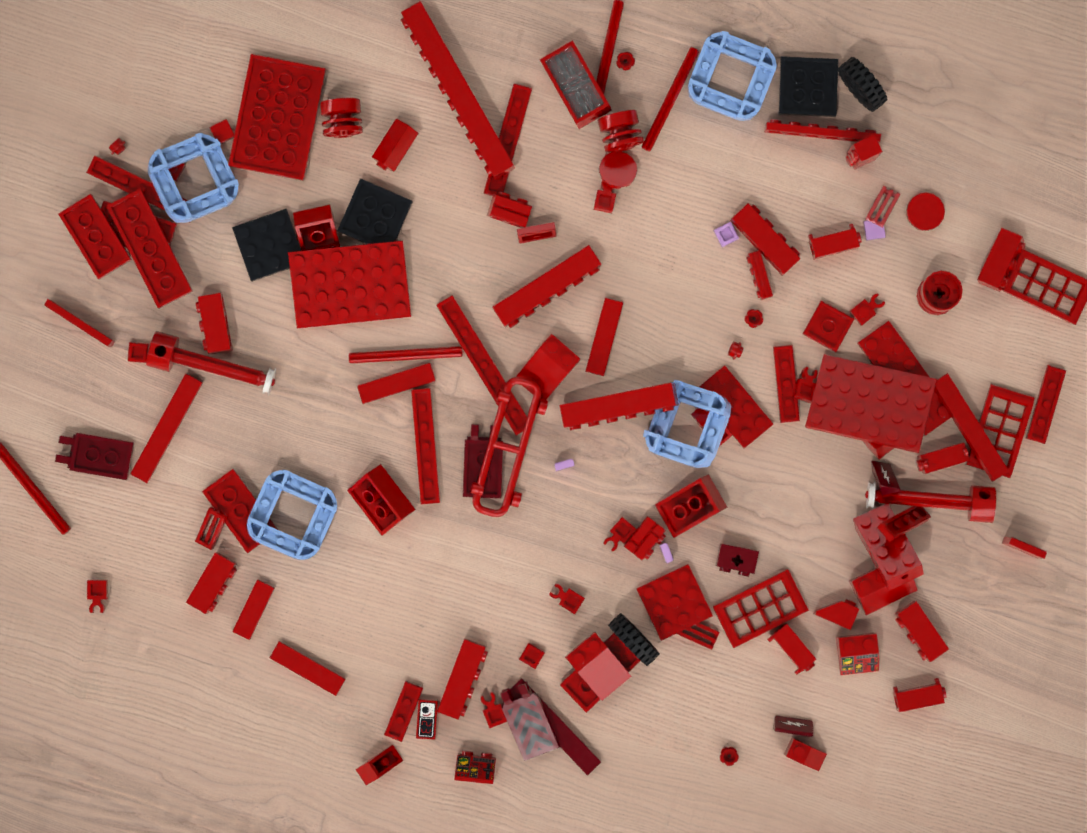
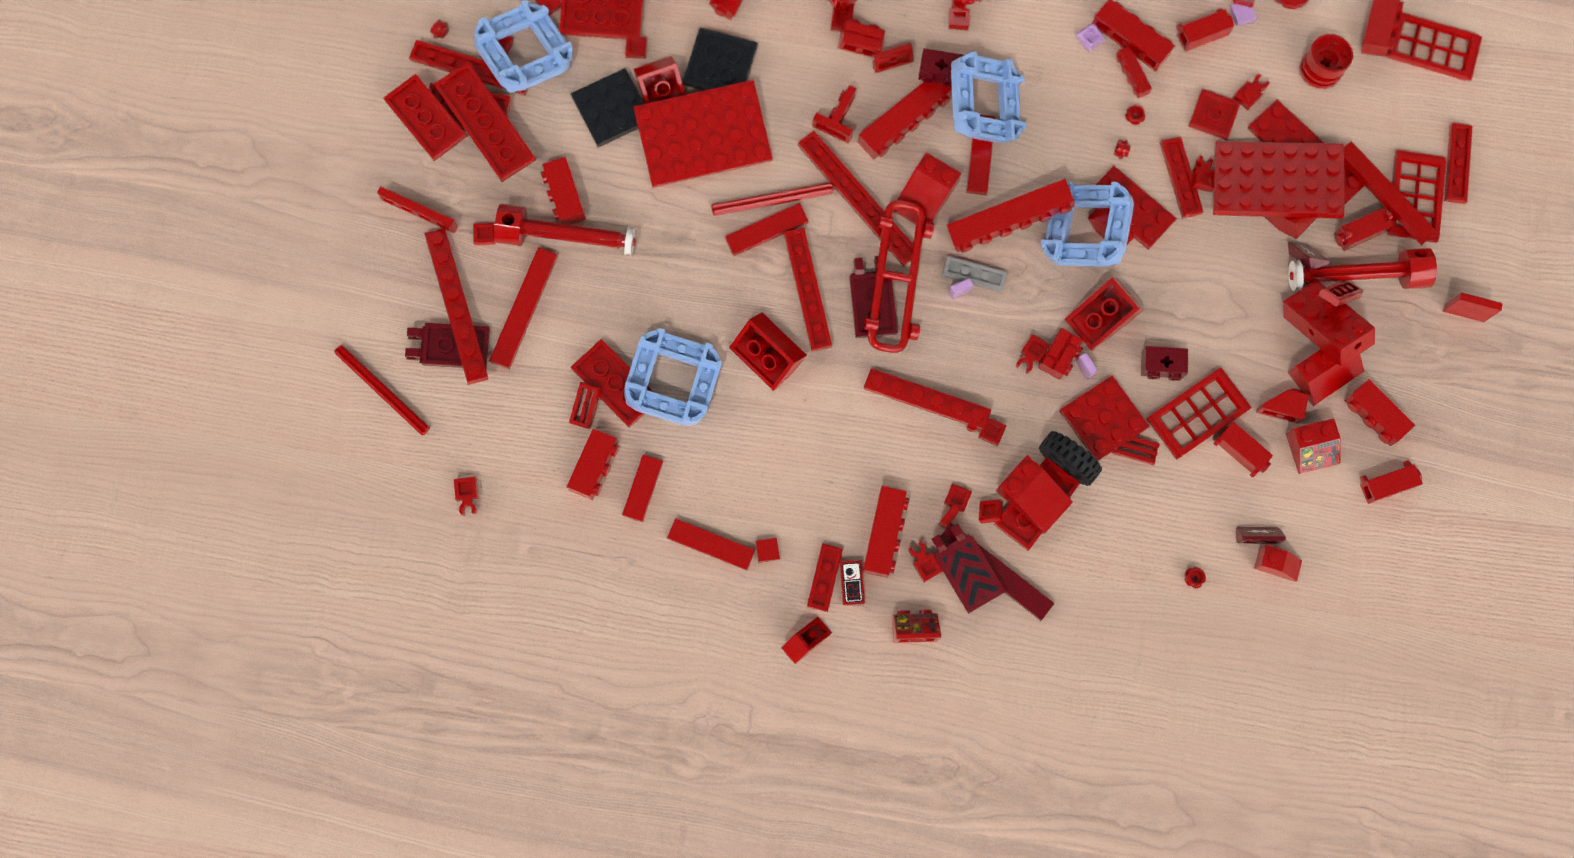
camera: 10 degrees left, 10 degrees down
(105, 420) = (456, 306): none -> red plate
(299, 188) = (636, 48): none -> red tile
(357, 680) = (767, 550): none -> red tile
(476, 283) = (832, 125): none -> red bracket
(517, 564) = (927, 399): none -> red plate
(520, 673) = (949, 516): none -> red tile
(558, 673) = (990, 511): none -> red tile
(570, 246) = (932, 61): none -> dark red brick
(580, 451) = (980, 275): none -> light grey tile
(591, 279) = (1008, 80): none -> light blue plate

